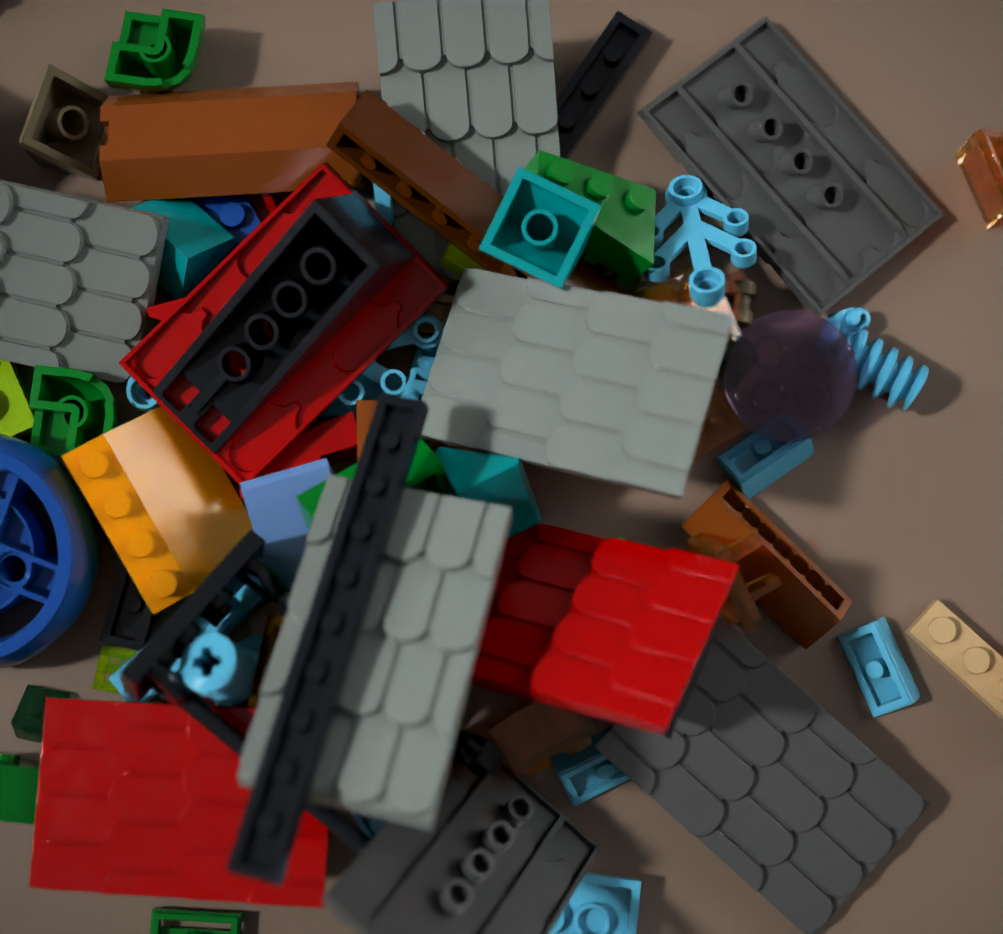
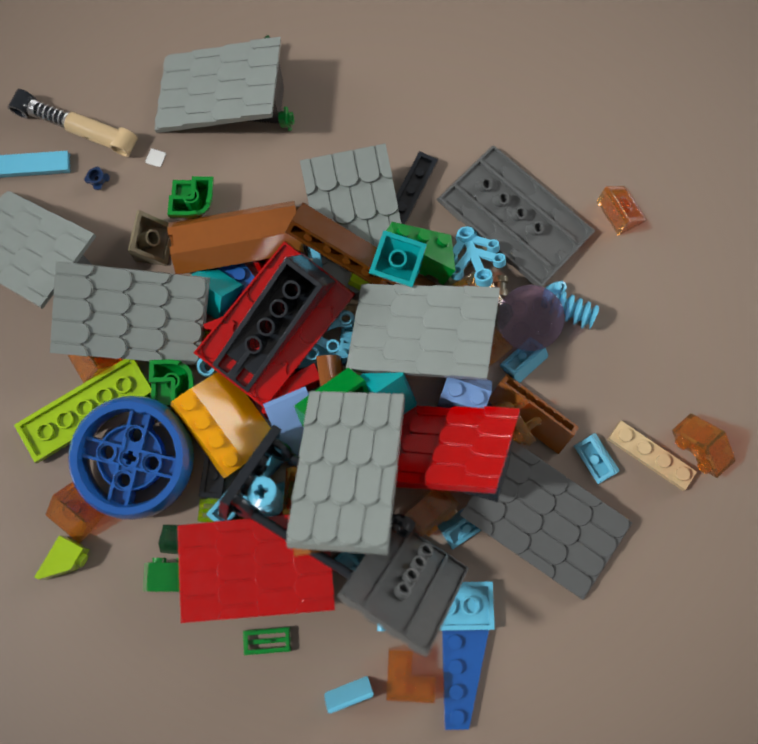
camera: 10 degrees left, 5 degrees down
(327, 643) = (323, 470): black plate -> none
(639, 515) = (465, 393): none -> medium blue slope

